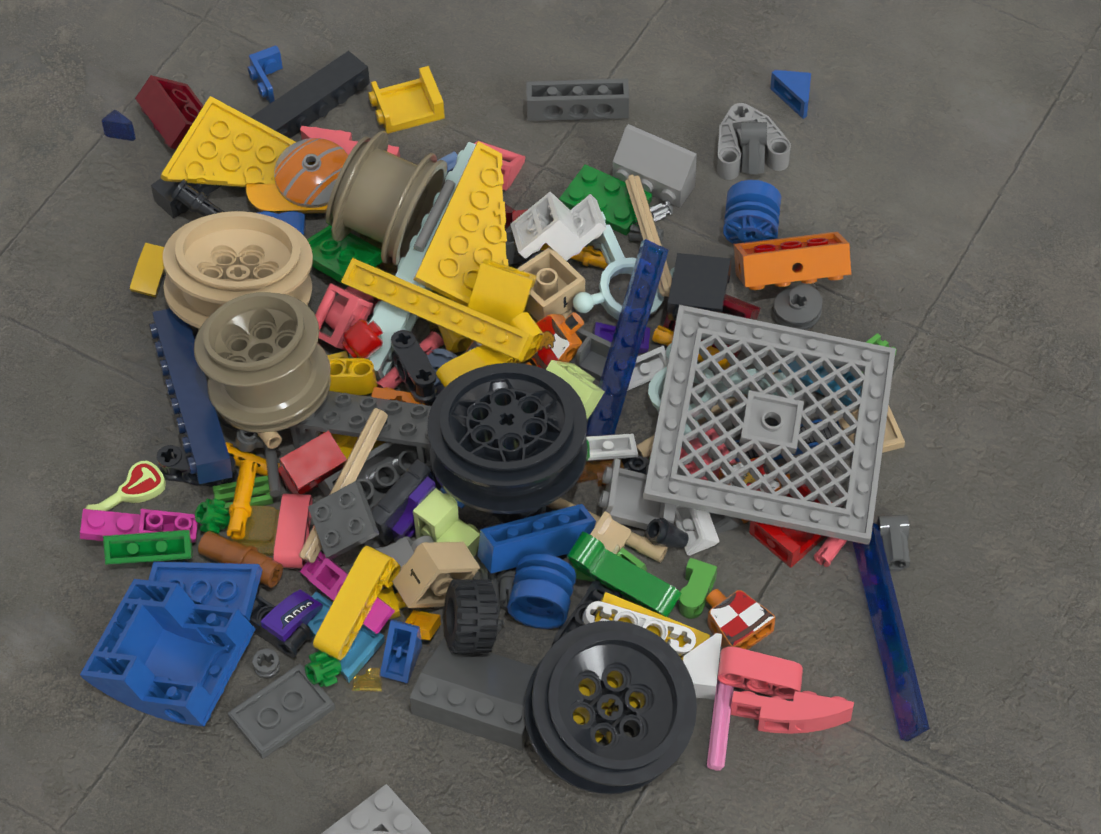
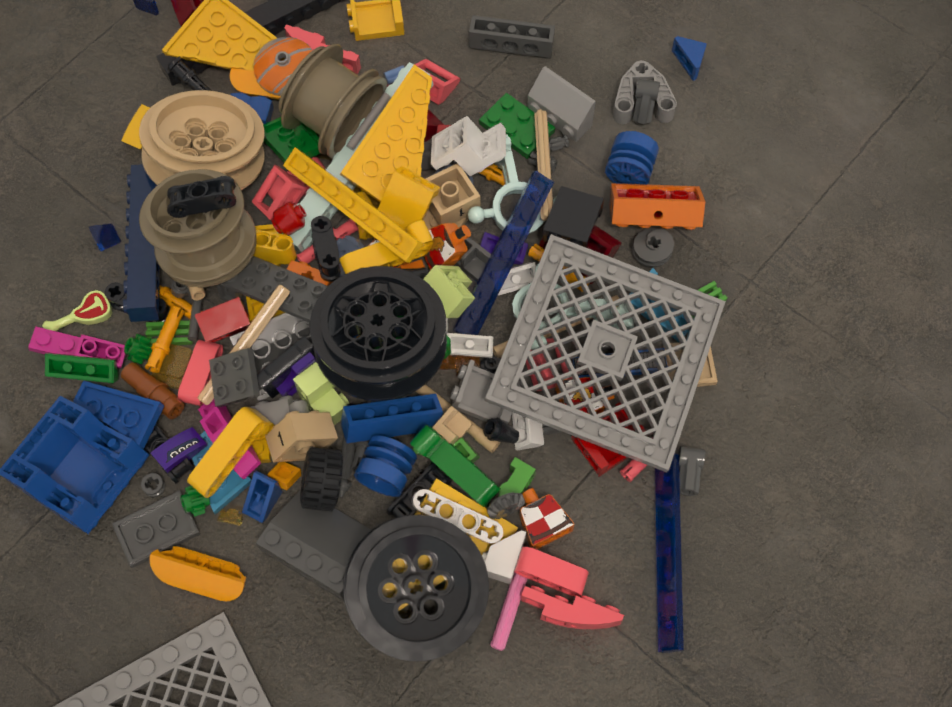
camera: 10 degrees right, 10 degrees up
(135, 399) = (104, 235): none -> clear blue slope
(271, 317) = (201, 196): none -> black piece
(347, 748) = (198, 573): none -> light orange brick
(692, 607) = (505, 505): none -> dark grey gear

